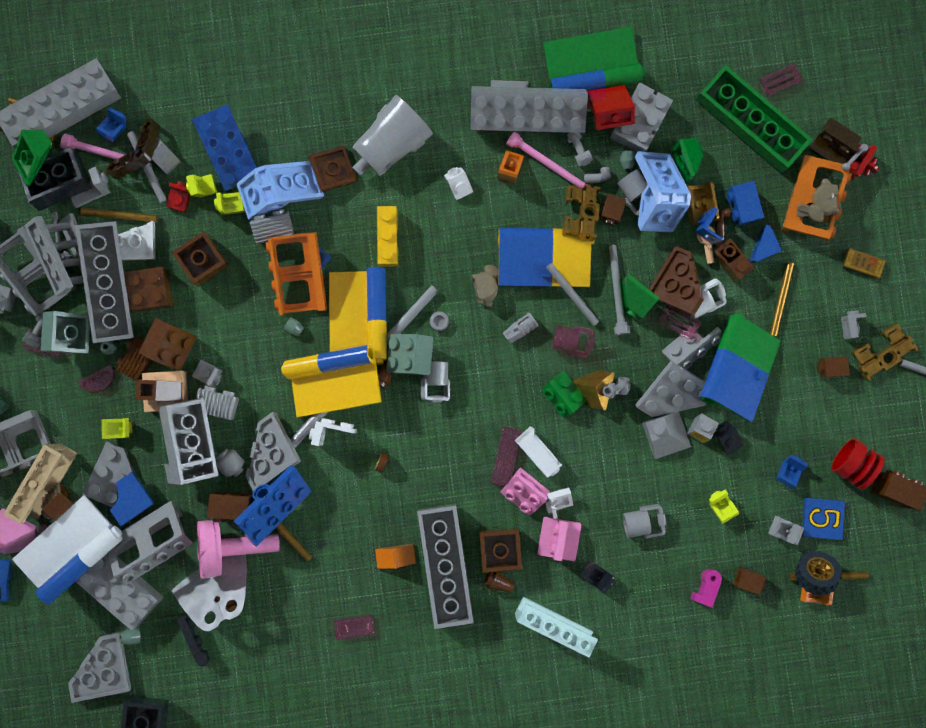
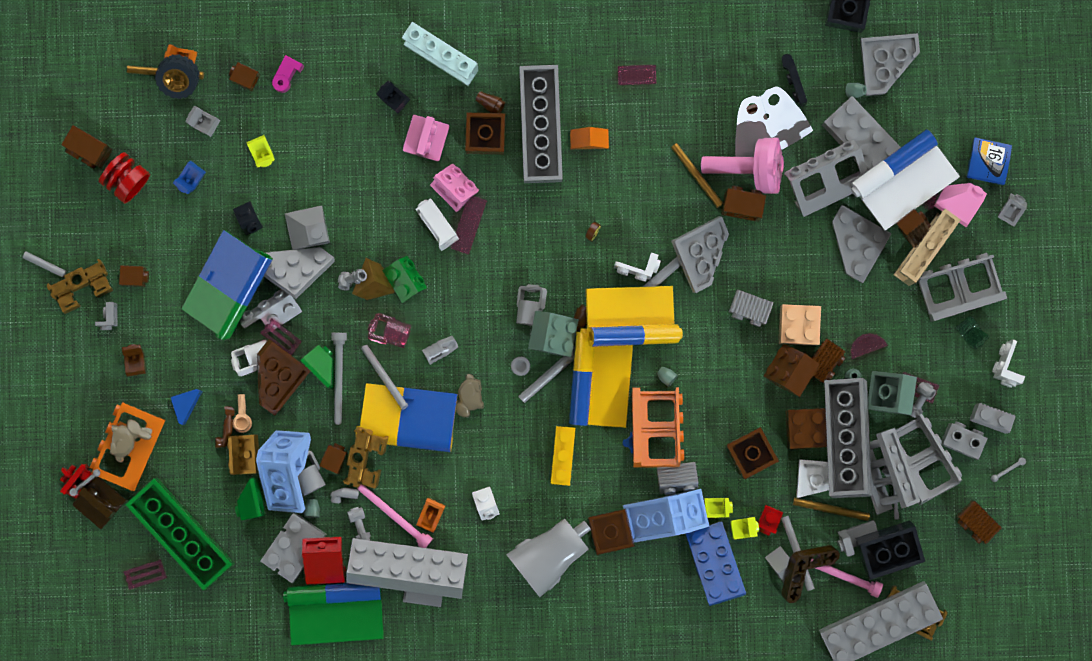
camera: 175 degrees left, 0 degrees up
(31, 153) = (908, 573): green slope -> none
(112, 125) = (829, 600): blue bracket -> none
(116, 428) = (851, 294): neon yellow bracket -> none
(131, 499) = (841, 222): blue tile -> none
(158, 390) = (801, 323): slope -> none
(187, 442) = (778, 270): light grey hinge -> none
(208, 373) = (756, 338): light grey bracket -> none
(229, 463) = (743, 247): light grey head -> none
(272, 505) = (702, 201): blue plate -> none
(558, 500) = (422, 175): white bracket -> none
(638, 522) = (347, 144): light grey piece -> none
(702, 428) = (271, 229): light grey brick -> none
(703, 229) = (244, 434): blue bracket -> none
(733, 261) = (219, 392): reddish brown slope -> none
(745, 203) = (200, 449): blue brick -> none
(781, 299) = (174, 350): pearl gold bar -> none
(821, 284) = (134, 360): none -> reddish brown bracket
(823, 518) = (163, 128): blue tile -> none
(863, 263) = (87, 377): pearl gold tile -> none

